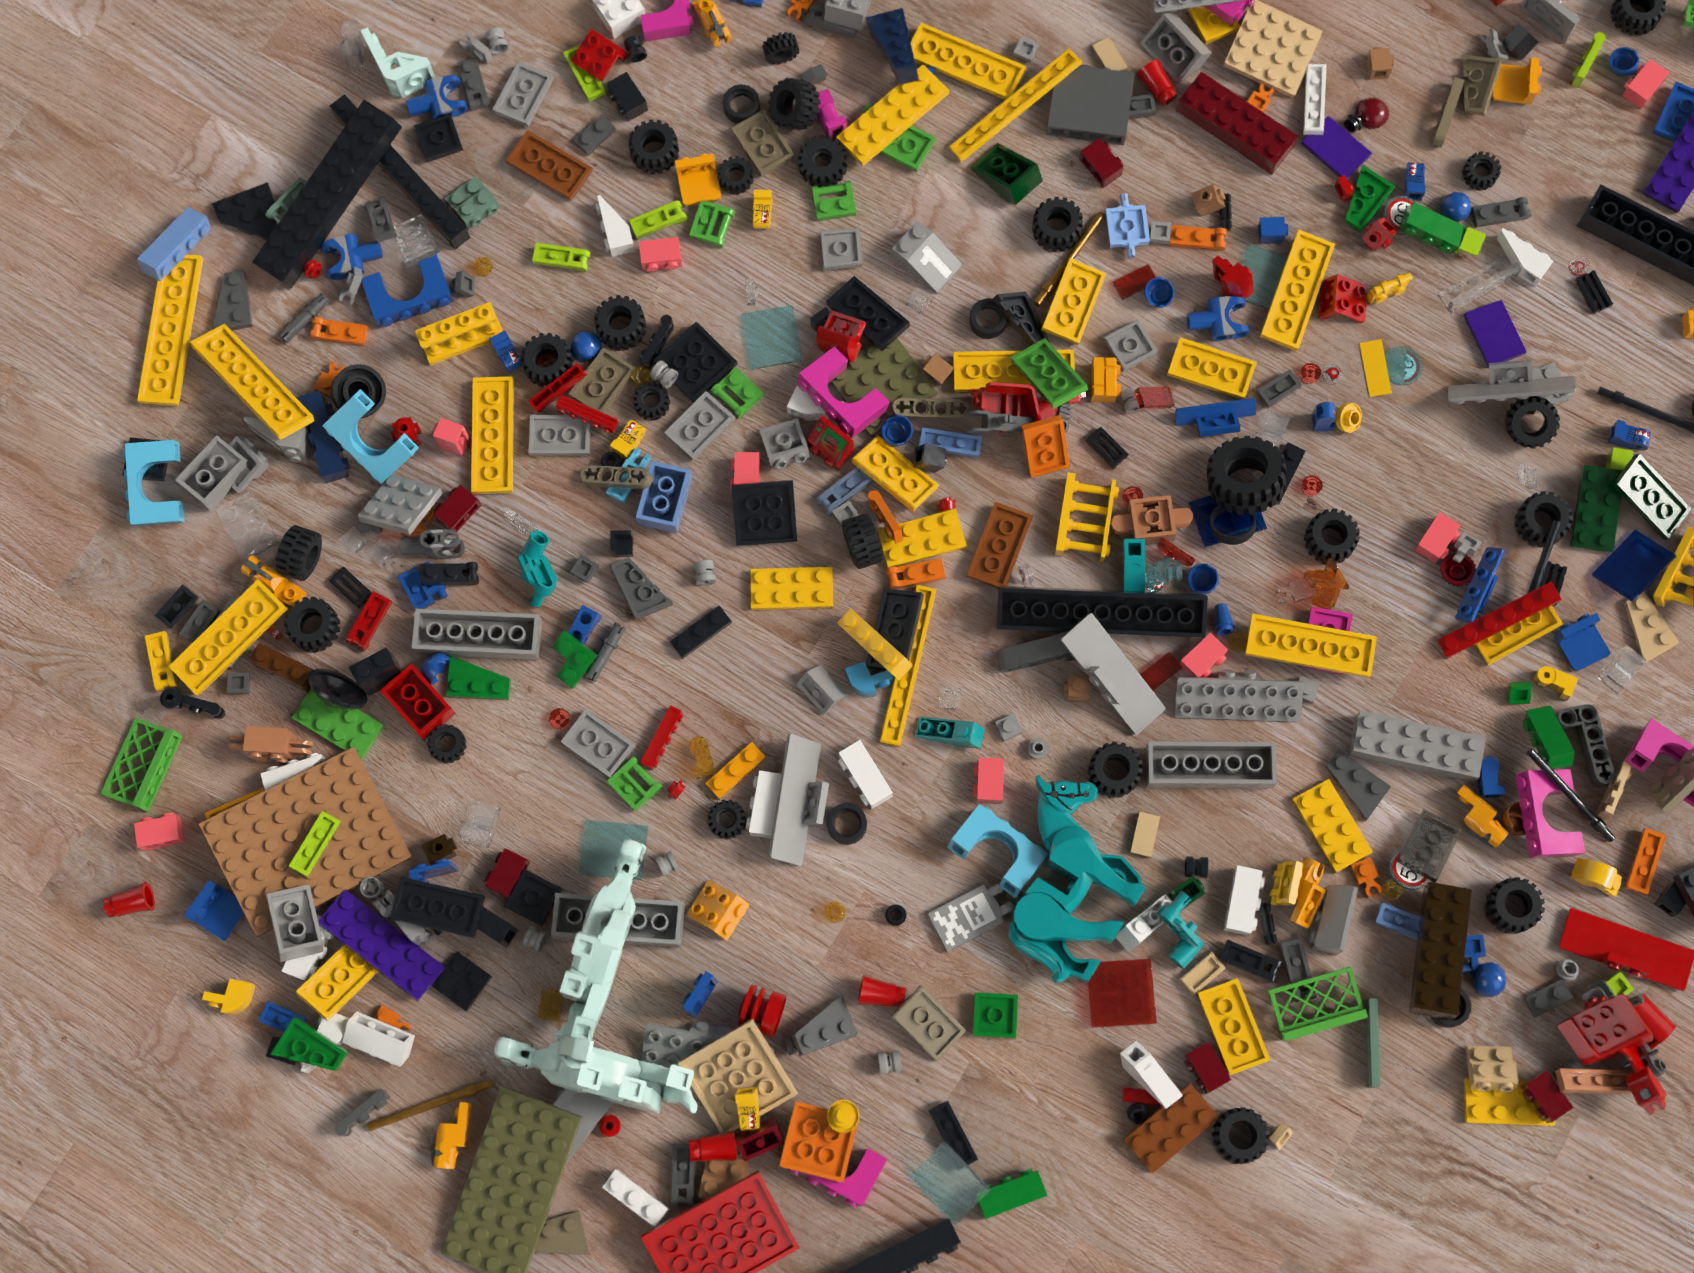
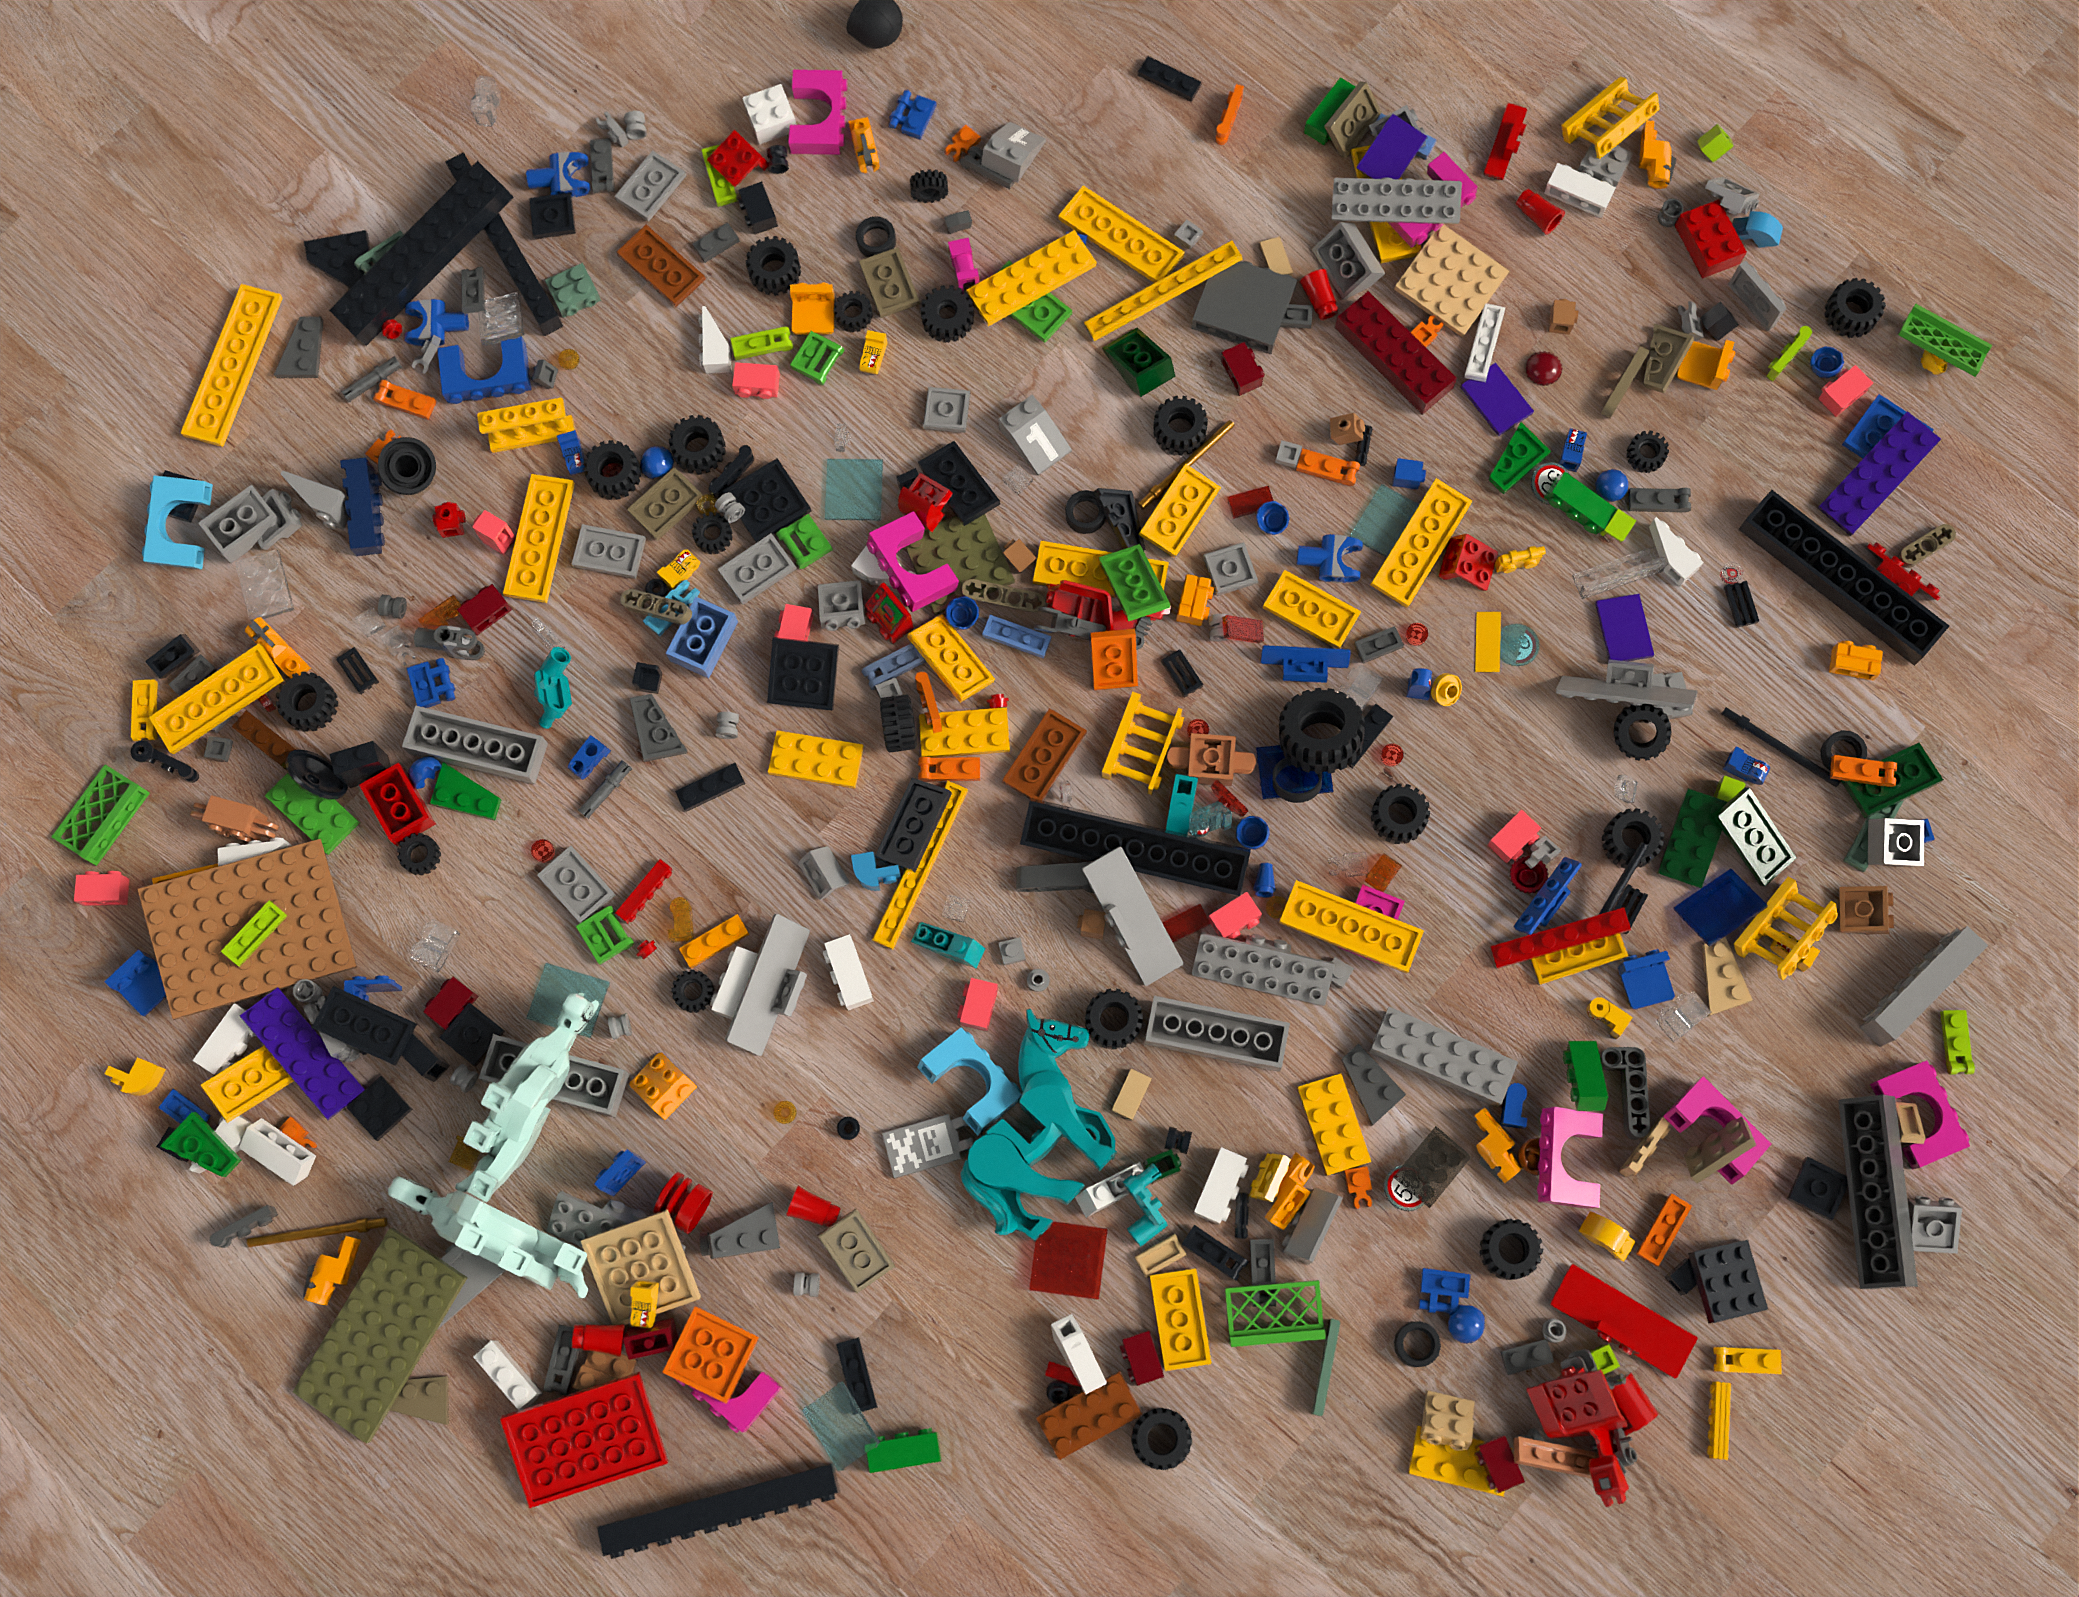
camera: 10 degrees right, 0 degrees up
(130, 901) = (55, 956): red plant -> none
(174, 244) = (253, 276): medium blue brick -> none
(252, 381) = (299, 435): yellow plate -> none
(295, 923) = (214, 1013): light grey slope -> none
(298, 553) = (308, 624): black tyre -> none
(369, 620) = (367, 709): red plate -> none
(378, 462) = (383, 501): medium azure arch -> none
(400, 504) = (424, 593): light grey plate -> none
(411, 69) = (536, 142): light aqua bracket -> none
(440, 848) = (386, 963): dark brown brick -> none
(448, 574) = (460, 676): black plate -> none
(557, 387) = (616, 501): red piece -> none
(560, 257) = (651, 363): lime plate -> none
(578, 658) = (575, 789): green plate -> none
(584, 569) = (603, 697): dark grey plate -> none
(587, 414) = (640, 535): red piece -> none
(613, 1132) = (506, 1291): red plate -> none
(805, 106) = (929, 247): black tyre -> none
(834, 207) = (950, 364): bright green plate -> none
(843, 1116) = (740, 1333): yellow plate -> none
(847, 807) = (803, 1011): black tyre -> none
(874, 644) = (887, 835): yellow brick -> none
(894, 42) = (1050, 200): dark blue wedge -> none
(929, 458) = (990, 648): black brick -> none
(995, 1015) = (929, 1256): green plate -> none
(1127, 226) = (1255, 441): light blue plate -> none
(1234, 280) = (1354, 518): red brick -> none
(1280, 1135) = (1204, 1447): tan plate -> none
(1328, 579) = (1386, 858): clear orange slope -> none
(1332, 374) = (1439, 640): clear tile -> none
(1344, 188) = (1495, 443): red plate -> none
(1353, 123) = (1520, 375): black plate -> none
(1379, 234) = (1522, 499): red brick -> none
(1391, 894) = (1382, 1210): clear yellow plate -> none
(1398, 920) = (1393, 1247): medium blue plate -> none
(1440, 951) = (1418, 1283): dark brown brick -> none
(1519, 693) = (1566, 1020): green plate -> none
(1596, 822) = (1620, 1178): black bar -> none

